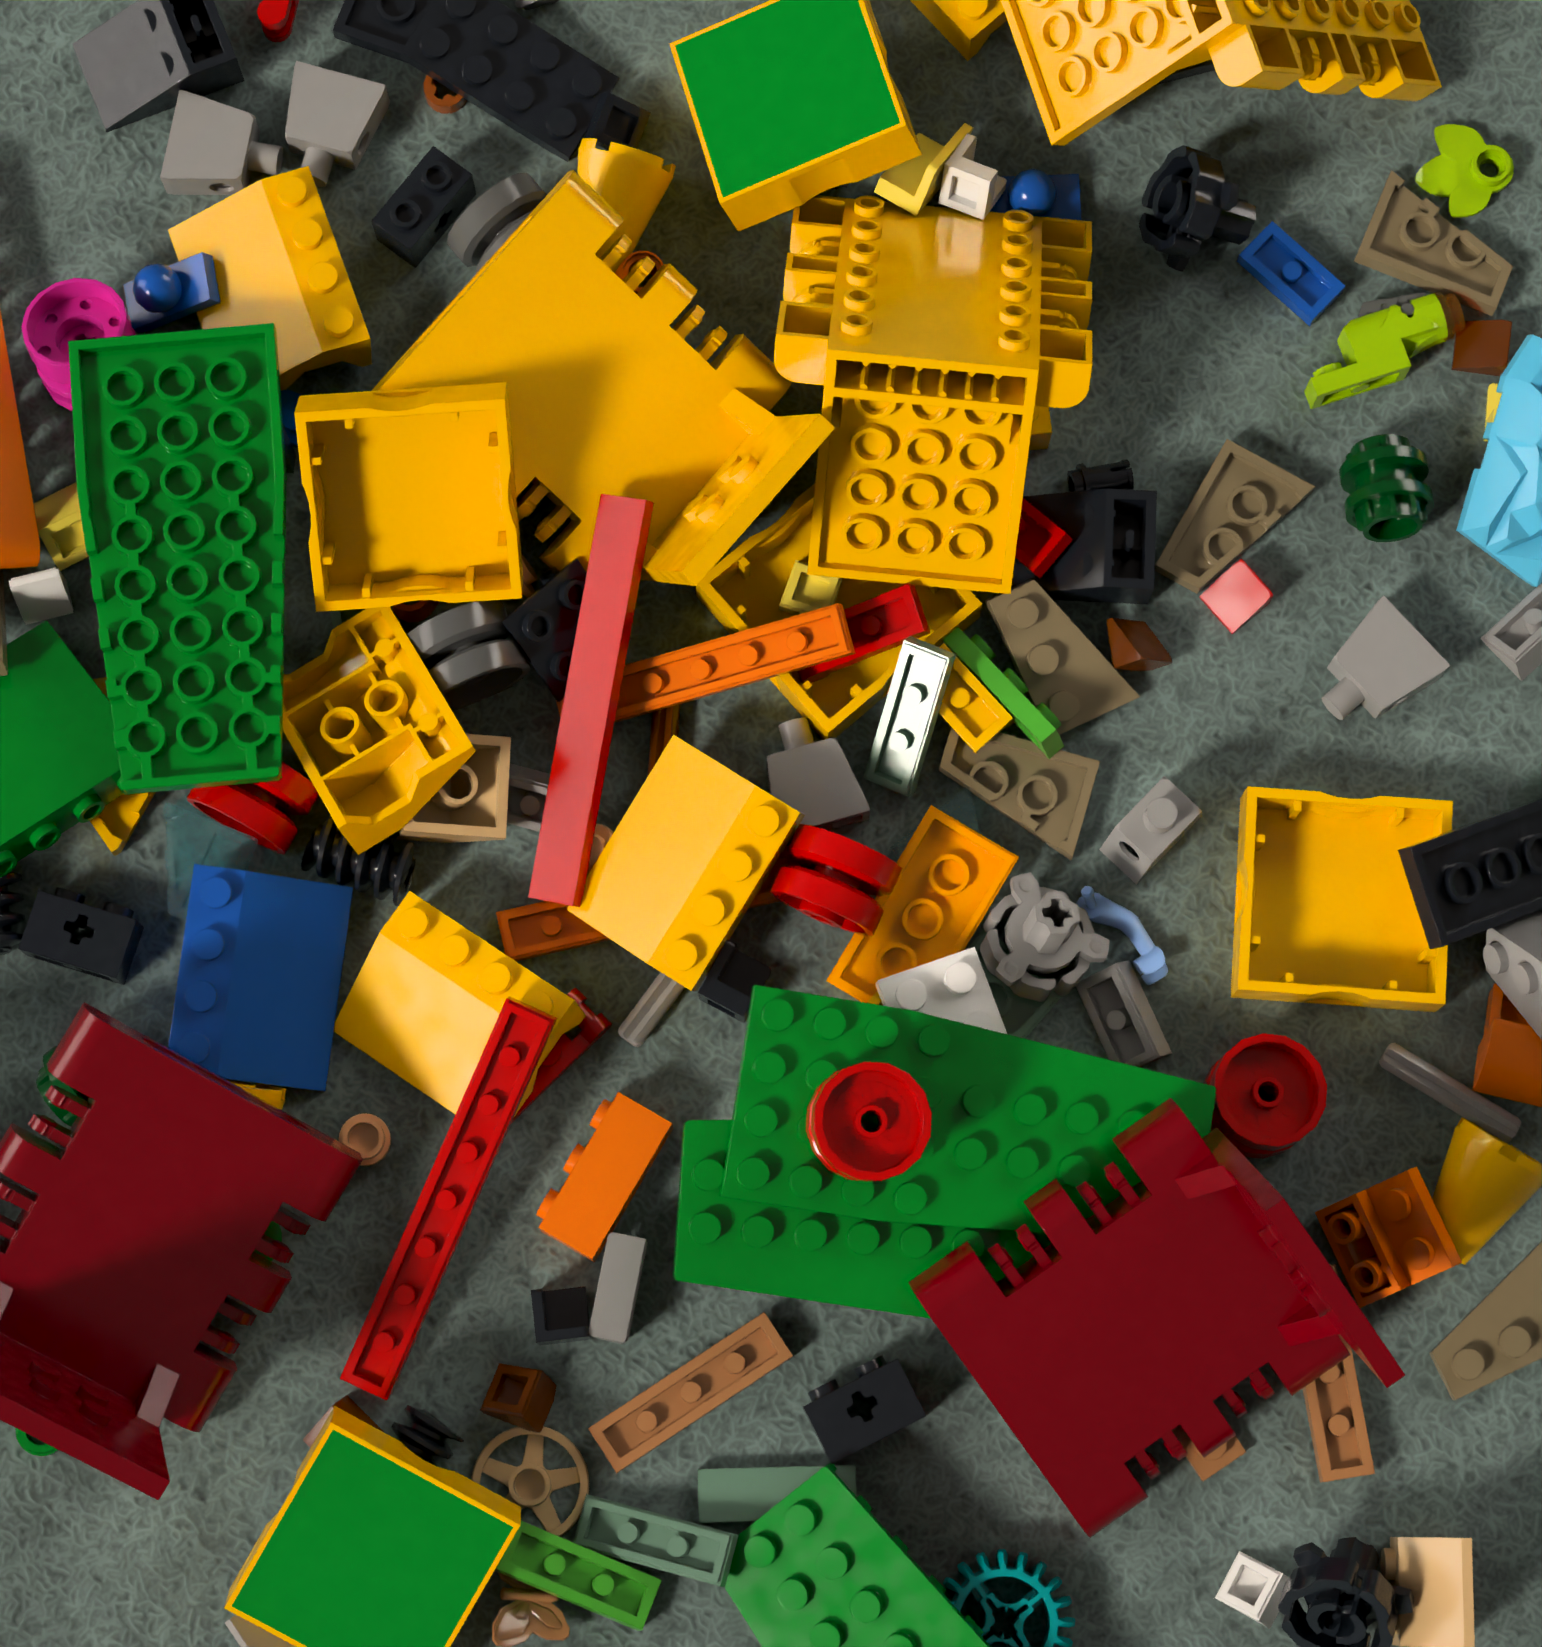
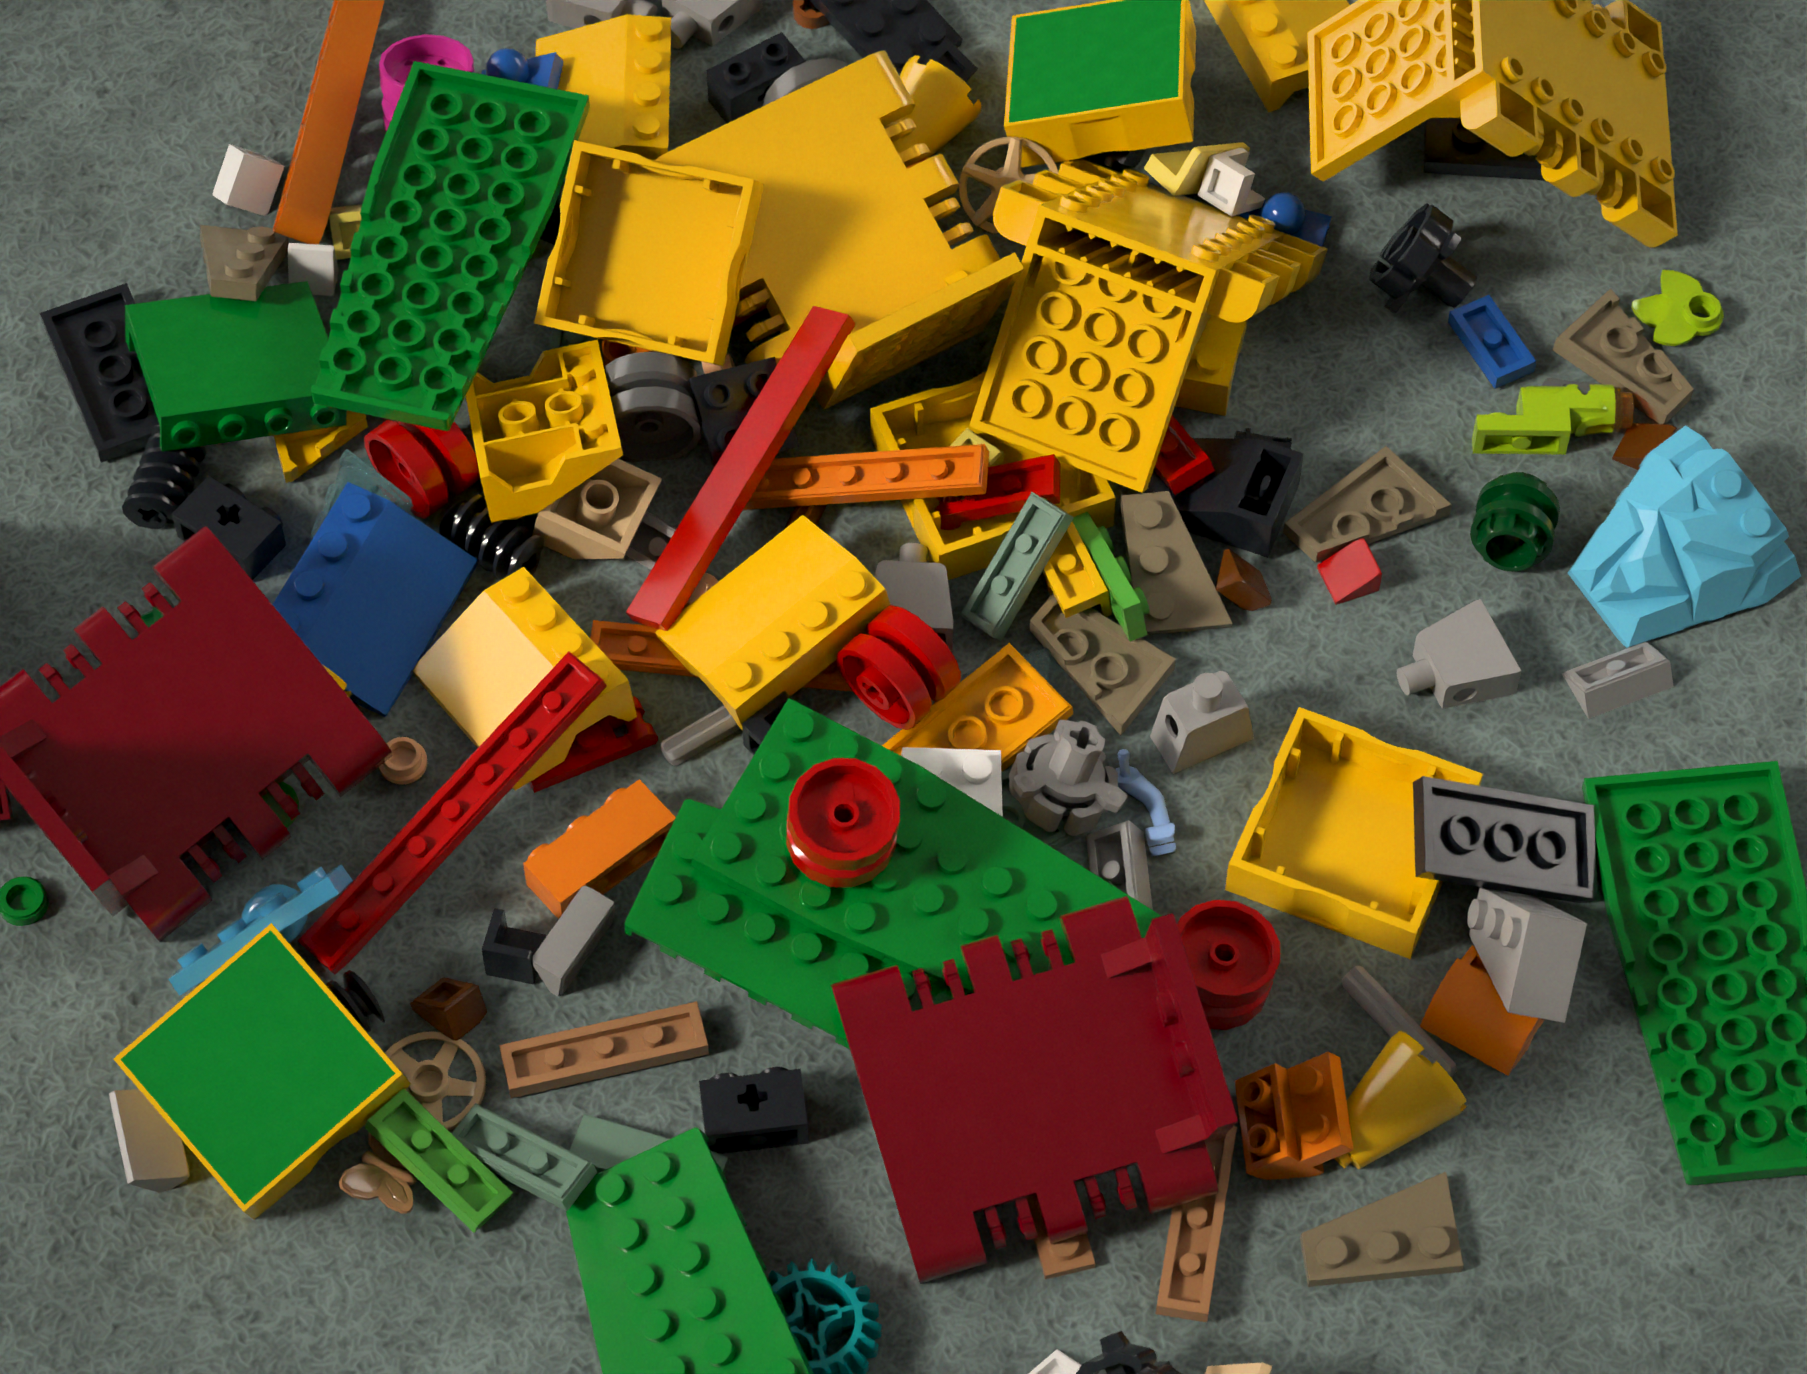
camera: 20 degrees right, 20 degrees down
(311, 1387) = (272, 904): none -> dark azure plate
(739, 256) = (996, 179): none -> tan wheel

